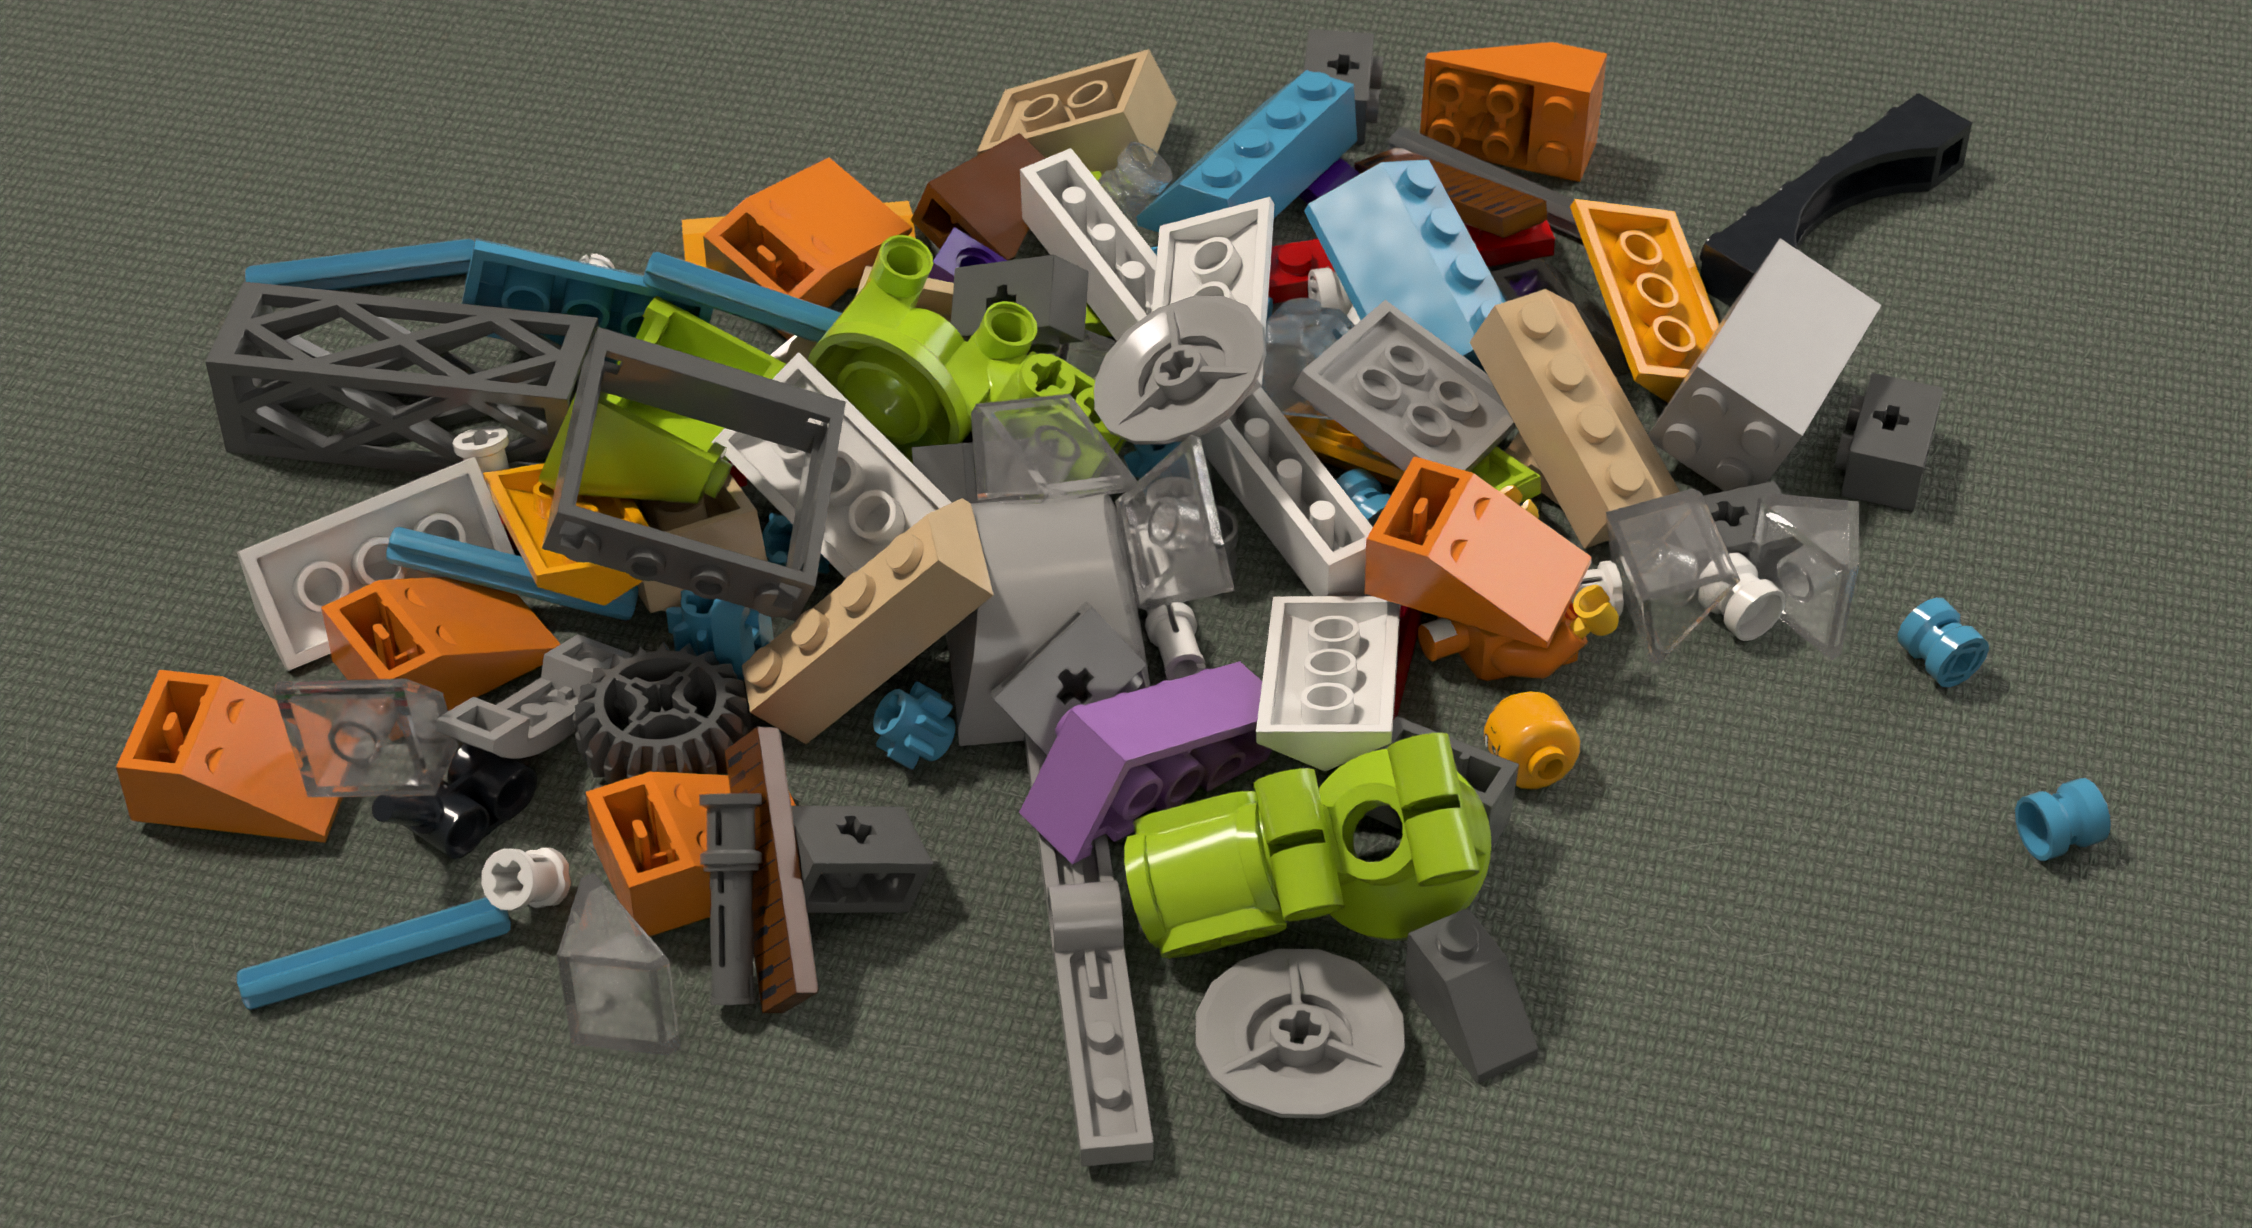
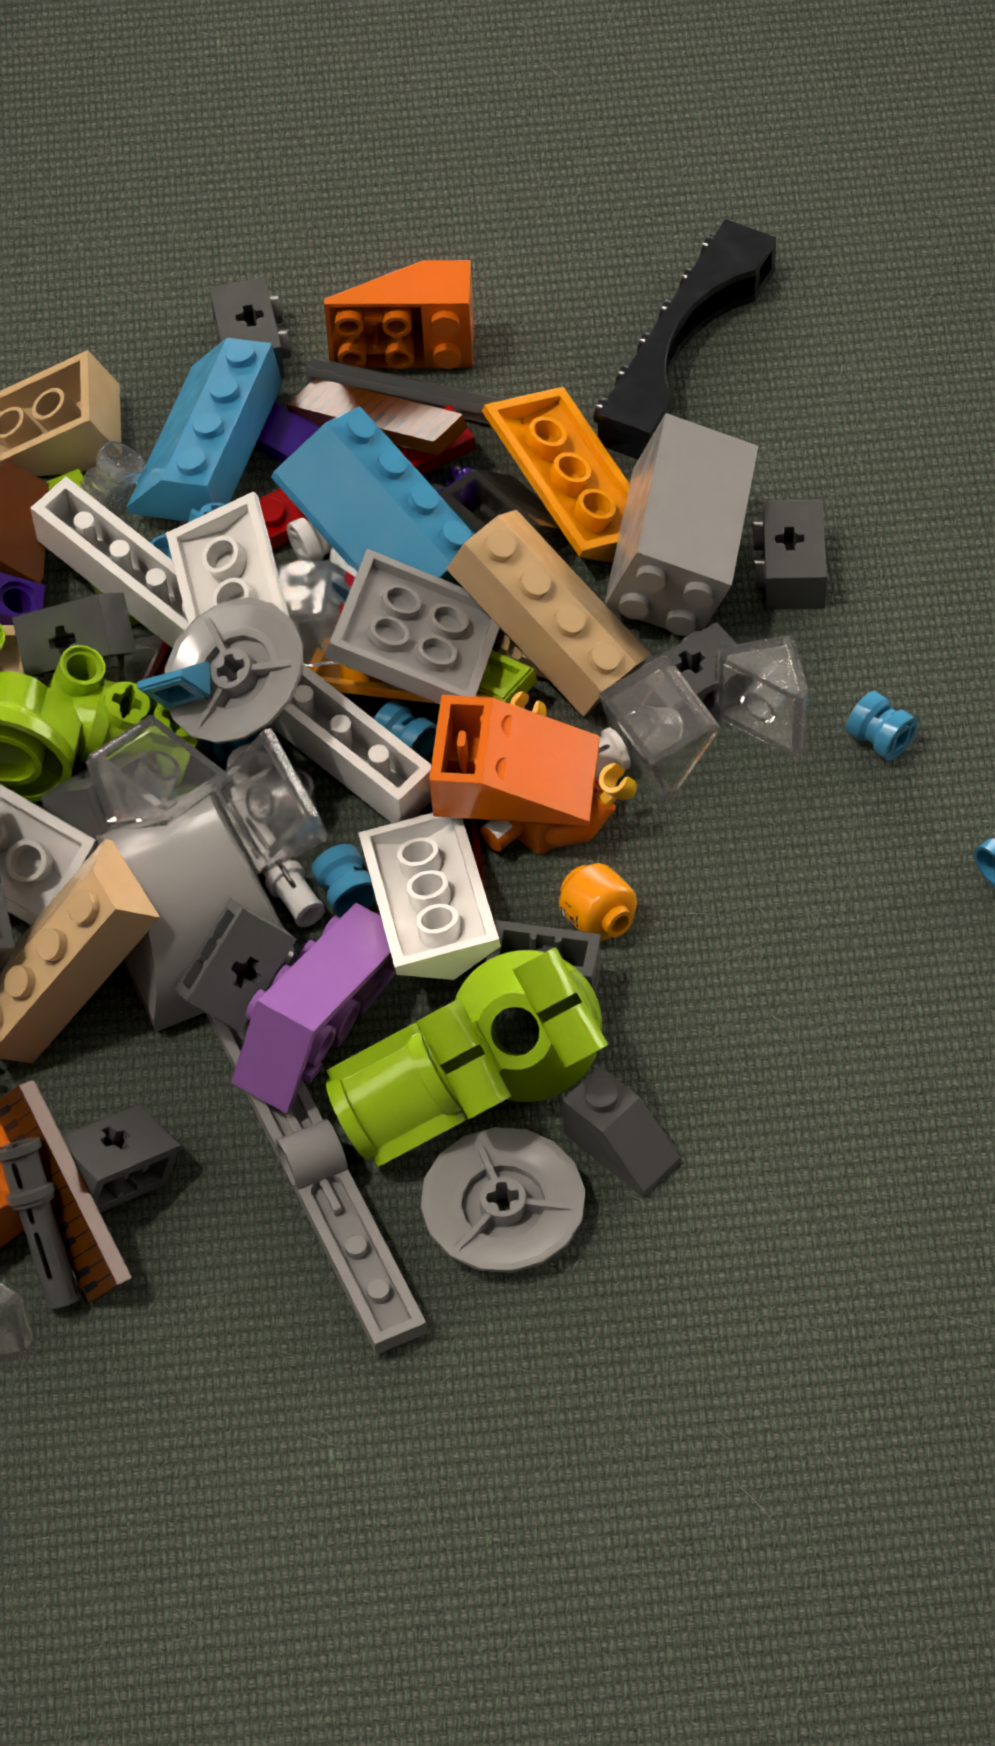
camera: 15 degrees left, 10 degrees up
(914, 725) = (118, 1028): dark azure gear -> none
(1110, 367) = (178, 685): none -> dark azure slope
(1236, 633) = (343, 875): none -> dark azure wheel
(1752, 604) = (734, 730): white wheel -> none

